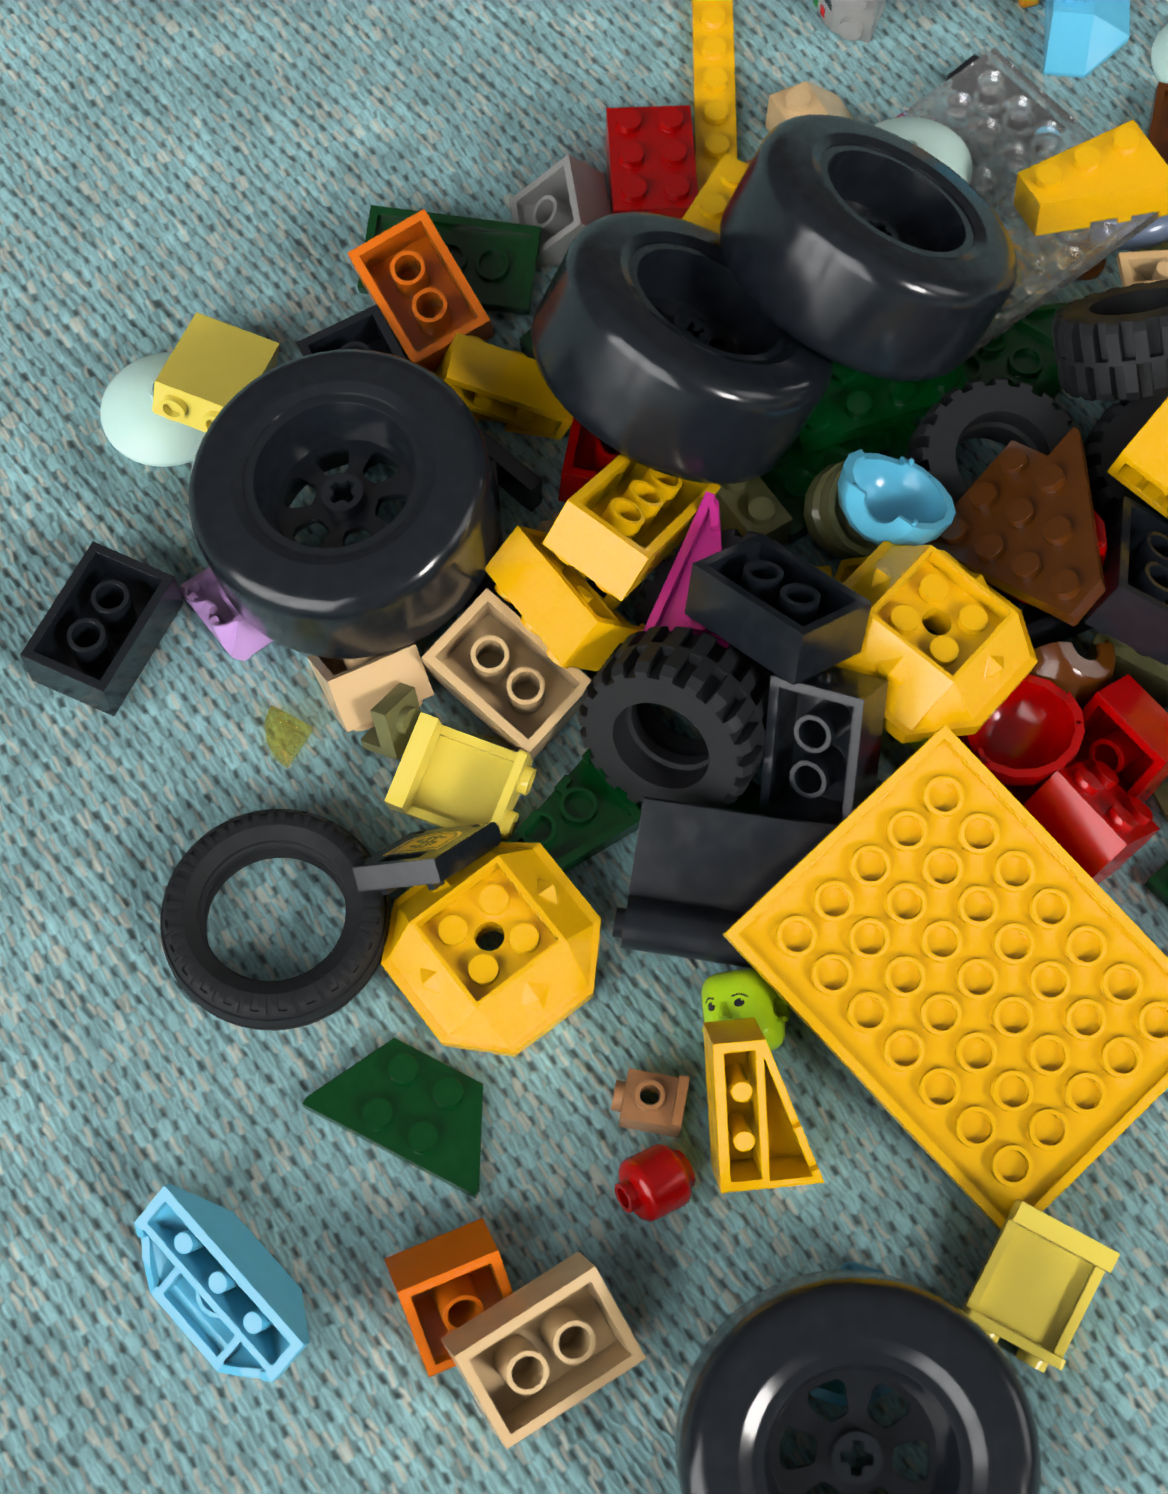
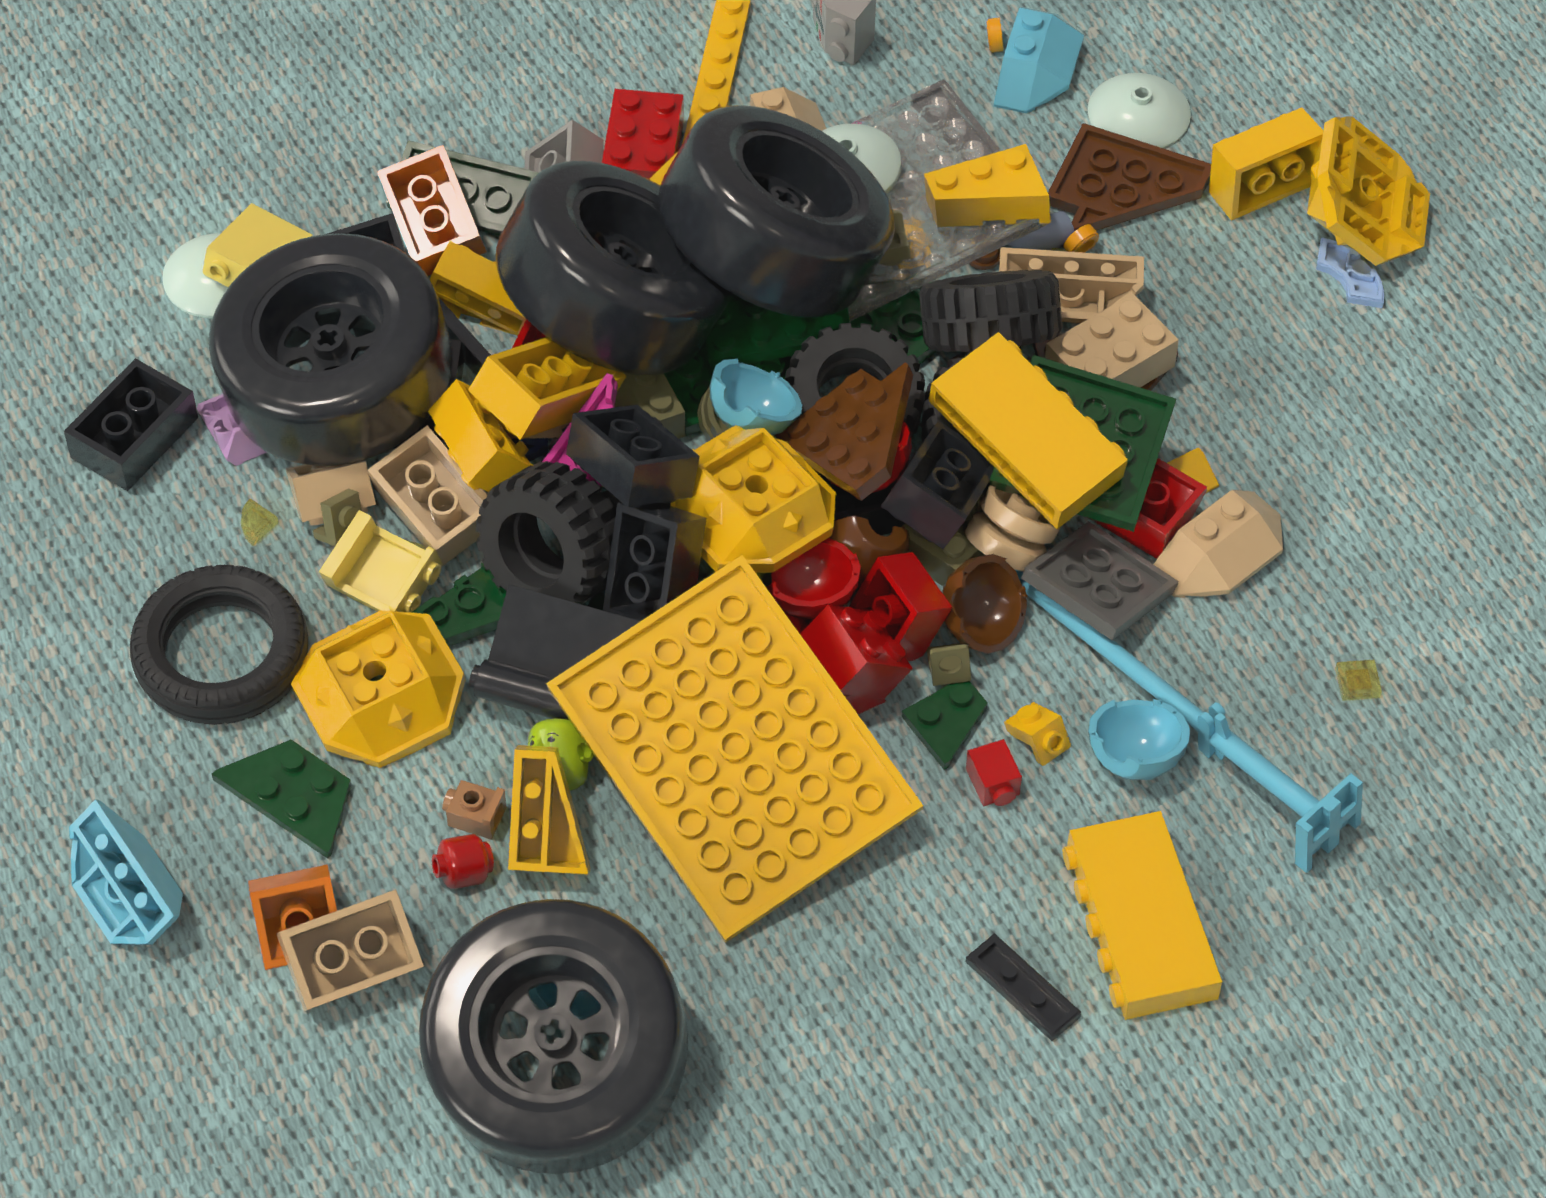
camera: 10 degrees right, 10 degrees down
(426, 857) = (338, 610): container -> none
(1037, 1285) = (734, 967): light yellow panel -> none

